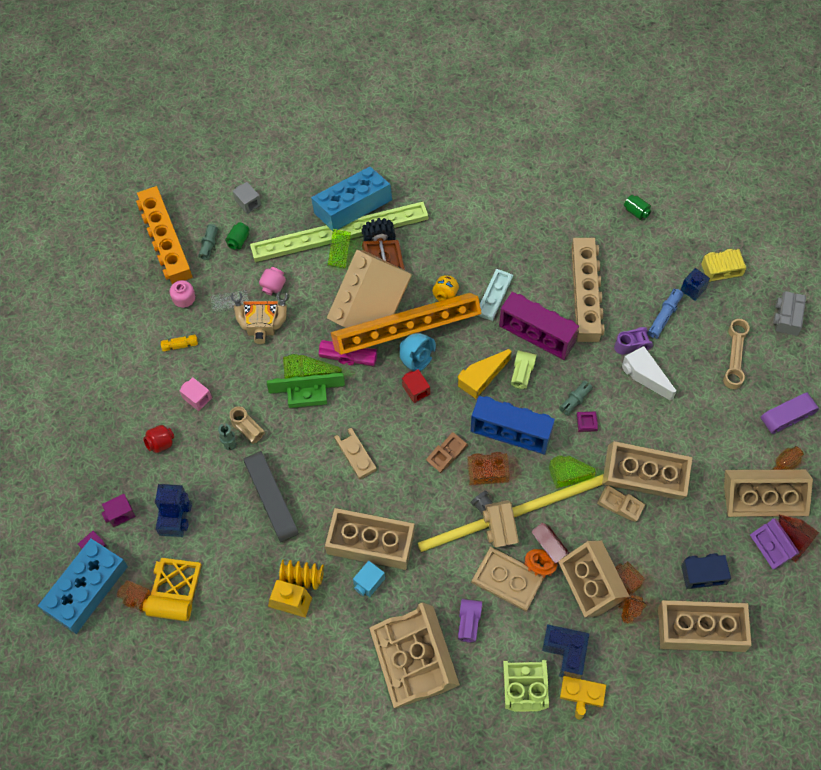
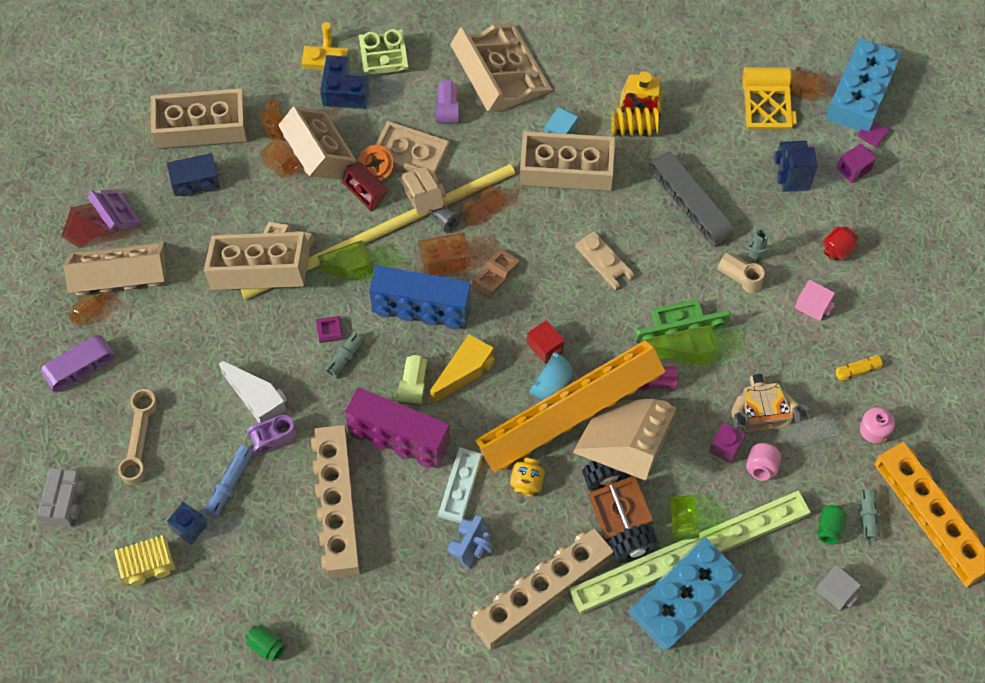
camera: 170 degrees right, 0 degrees up
(297, 293) = (727, 443): none -> magenta brick
(456, 510) = (490, 199): none -> clear orange hinge
(472, 203) = (495, 632): none -> tan brick
(497, 248) = (473, 543): none -> medium blue hips

